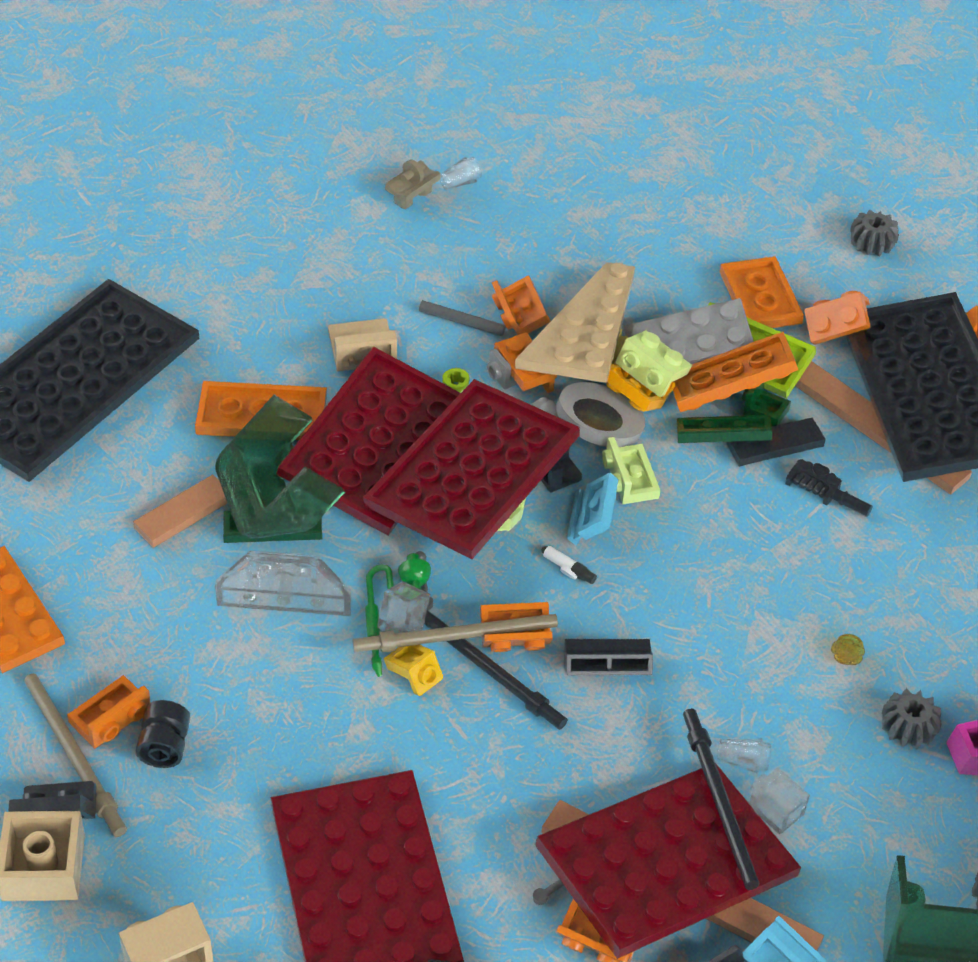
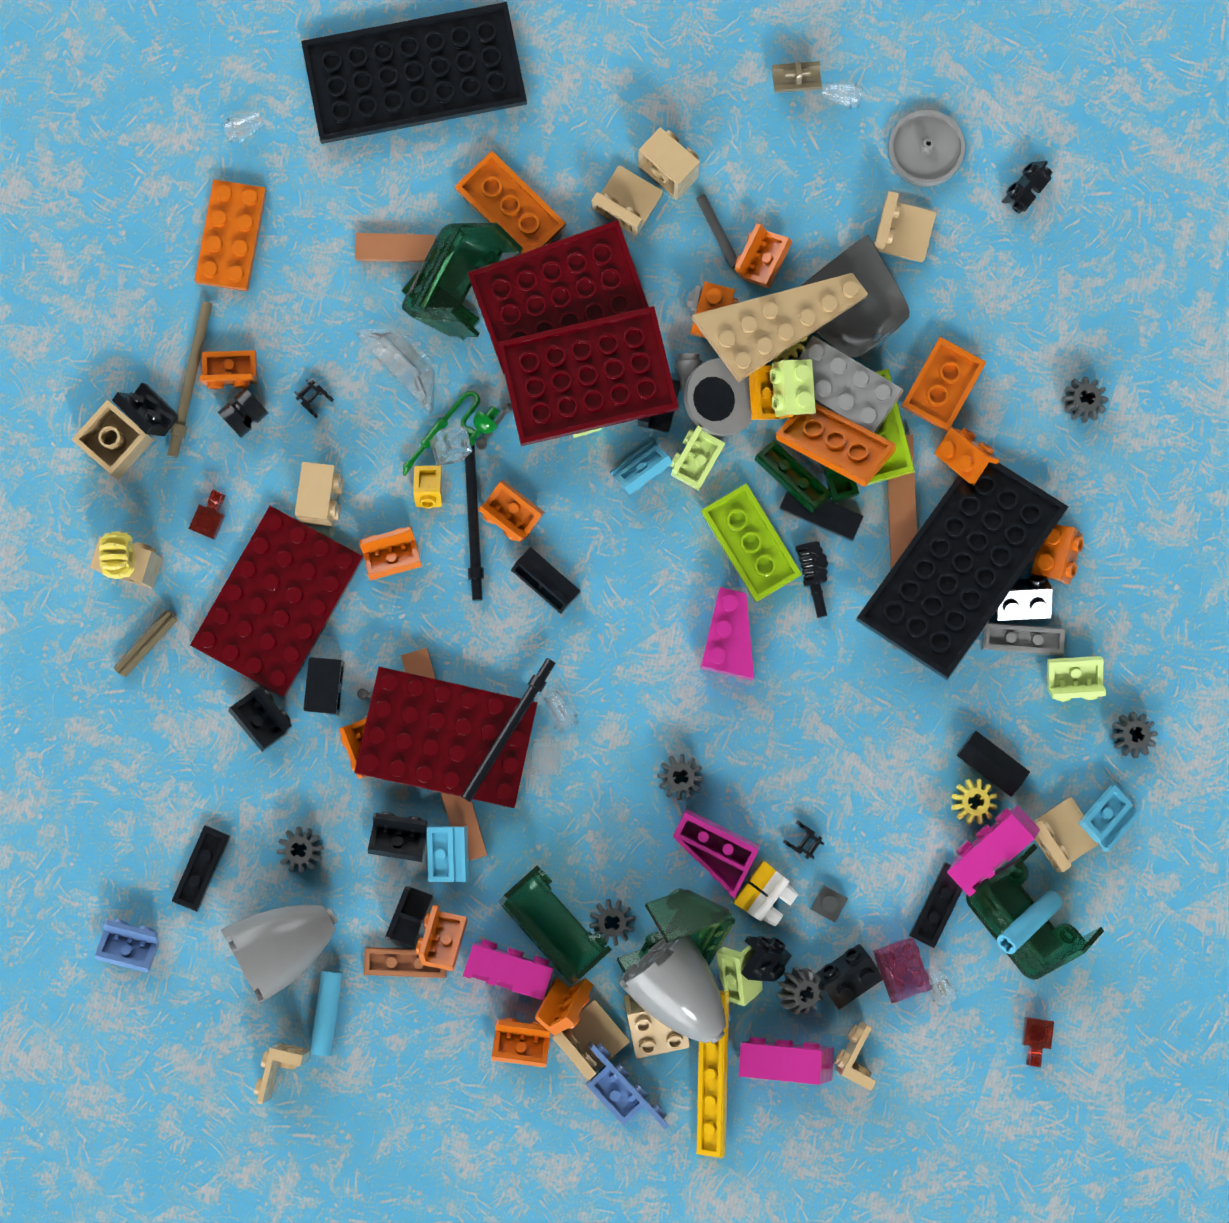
camera: 45 degrees right, 35 degrees up
(163, 916) = (117, 555): none -> light yellow gear
(215, 861) = (208, 519): none -> clear red plate
(220, 669) = (306, 403): none -> black piece
(316, 738) = (319, 494): none -> tan brick
(373, 287) = (669, 162): none -> tan brick
(388, 641) = (423, 461): dark tan bar -> none
(437, 744) = (390, 553): none -> orange bracket
(456, 375) = (651, 284): lime bush -> none
(498, 908) = (324, 685): none -> black panel
(563, 170) = (926, 148): none -> light grey piece
(568, 566) = (591, 493): piece -> none
(606, 223) = (904, 229): none -> tan bracket
(654, 281) = (878, 313): none -> dark grey piece
(666, 143) = (1034, 176): none -> black hinge
(748, 500) = (751, 543): none -> lime plate
(818, 577) = (728, 638): none -> dark pink wedge
(851, 644) = (693, 693): clear yellow plate -> none

